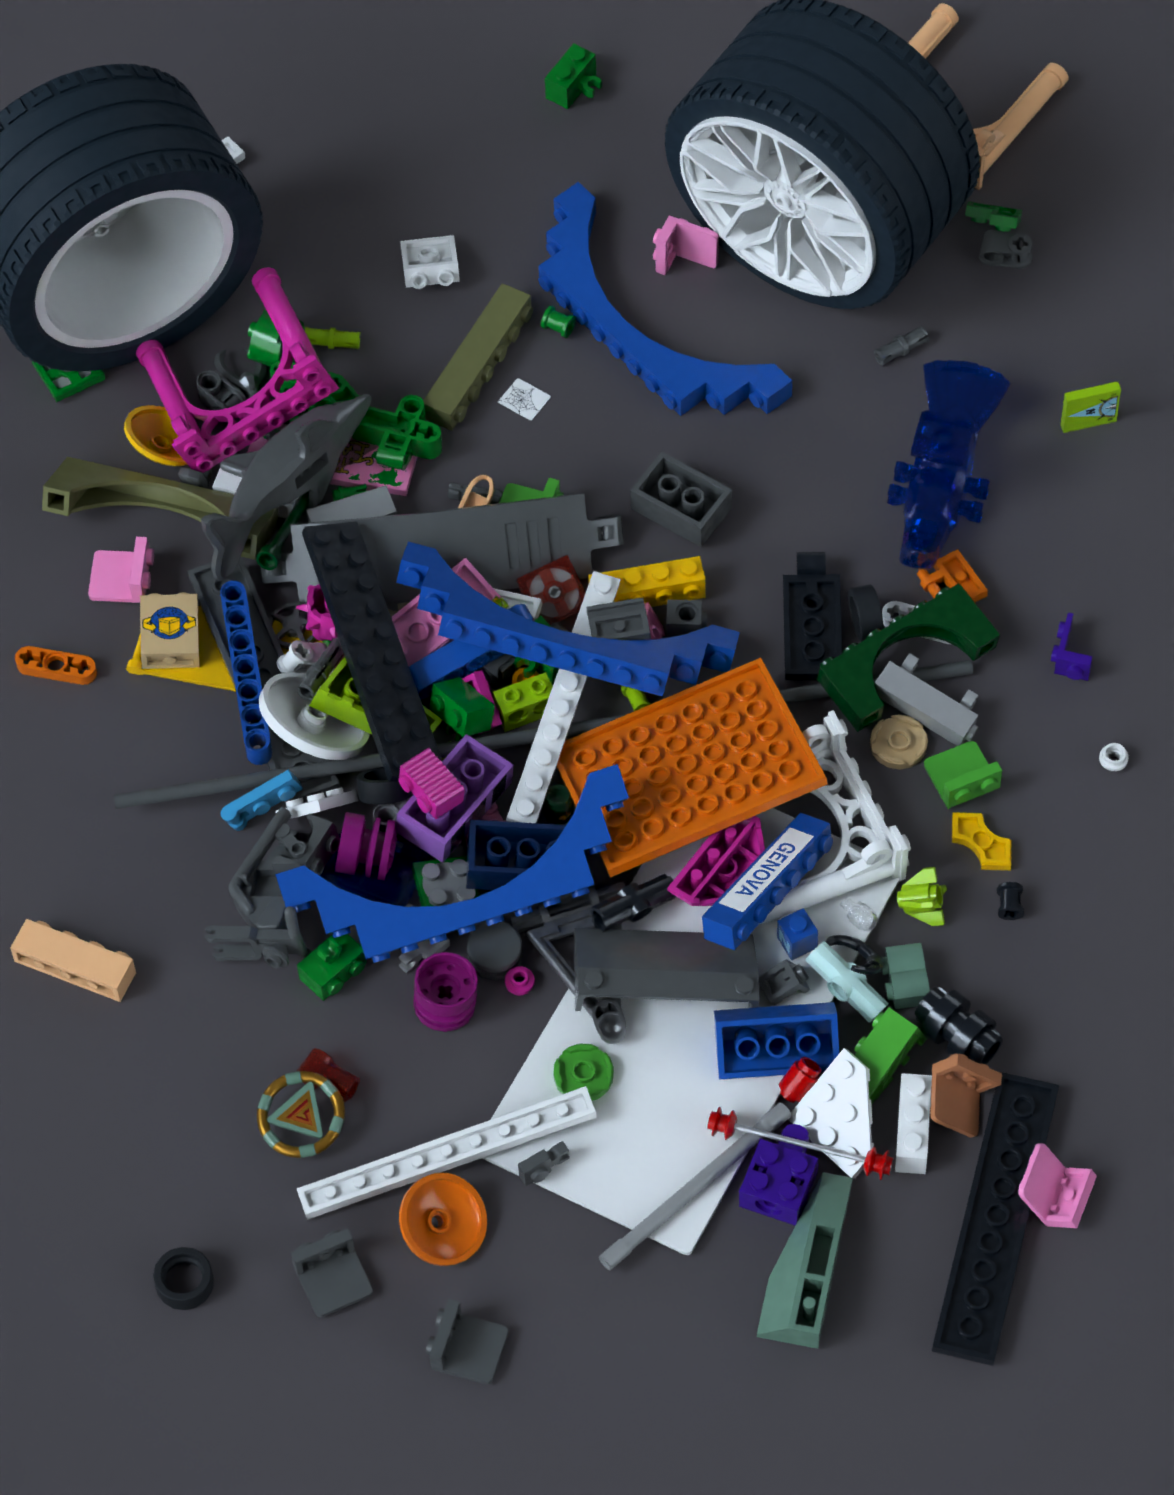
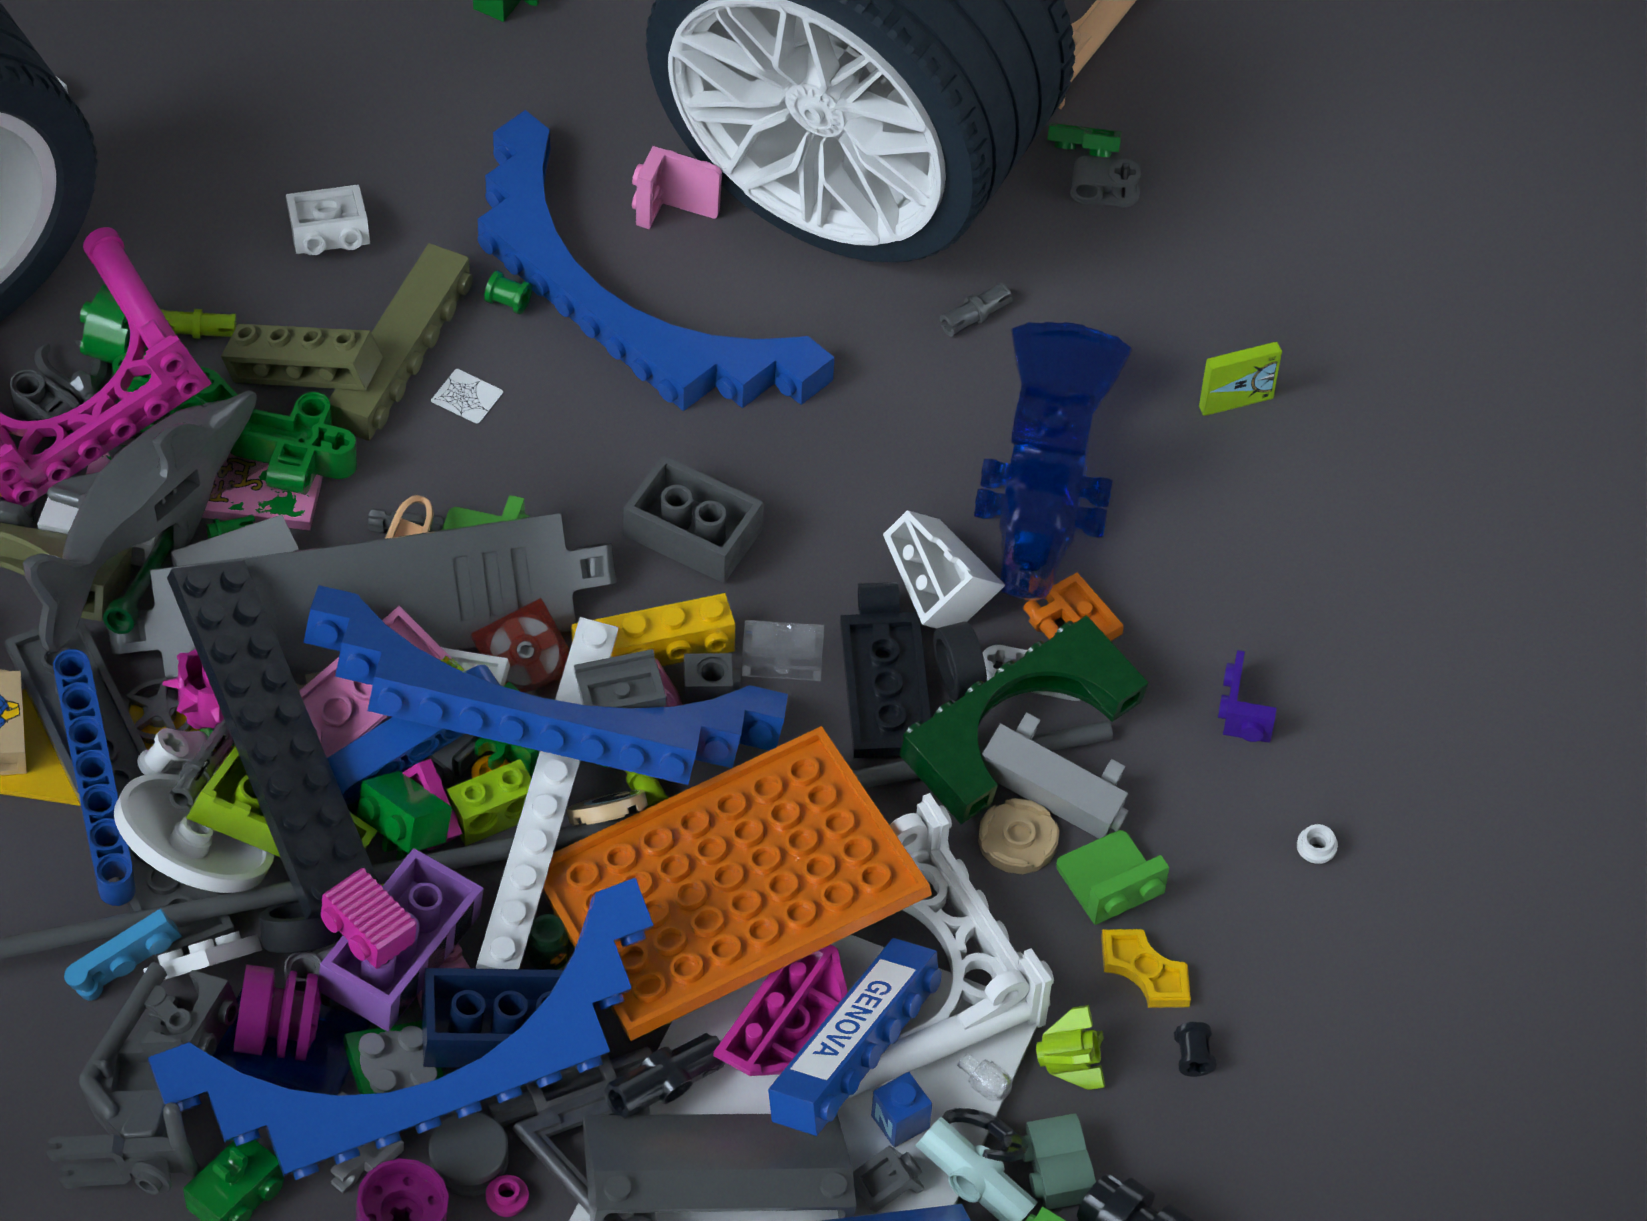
camera: 10 degrees left, 5 degrees down
(405, 367) = (302, 356): none -> olive brick
(605, 709) = (606, 807): none -> tan tile
(739, 599) = (782, 650): none -> clear brick
(856, 544) = (939, 570): none -> white wedge

